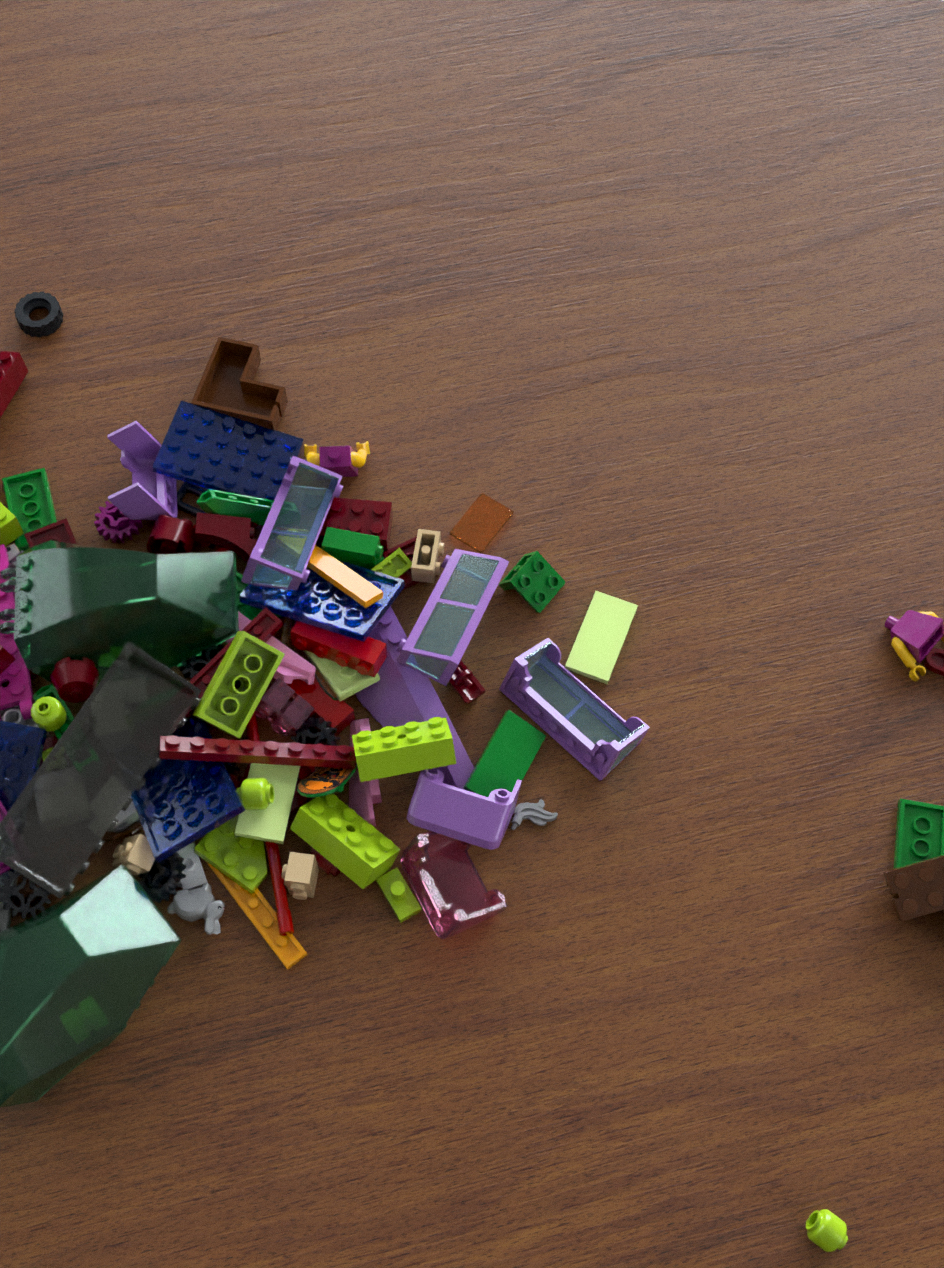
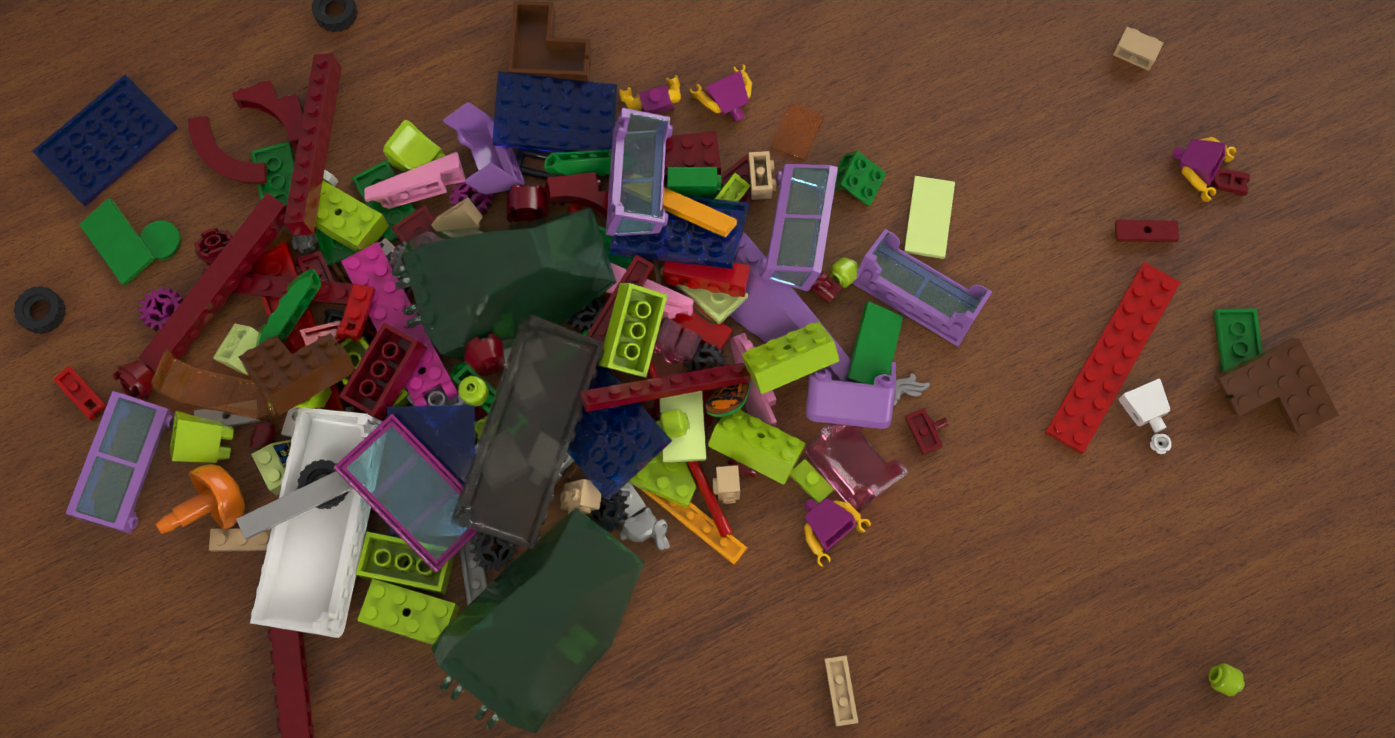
camera: 10 degrees left, 10 degrees up
(64, 495) = (417, 183): none -> bright pink wedge
(72, 465) = (410, 148): none -> lime hips
(98, 535) = (458, 217): none -> tan brick
(368, 1142) = (841, 691): none -> tan plate
(403, 944) = (829, 523): none -> magenta torso
(415, 469) = (726, 94): none -> magenta torso
(491, 674) = (844, 271): none -> lime head
(540, 864) = (925, 430): none -> dark red plate
(770, 829) = (1112, 358): none -> red plate
(799, 888) = (1147, 405): none -> white torso
(806, 929) = (1164, 439): none -> white plate
(851, 699) = (1157, 231): none -> dark red tile
(869, 506) = (1138, 48): none -> tan brick

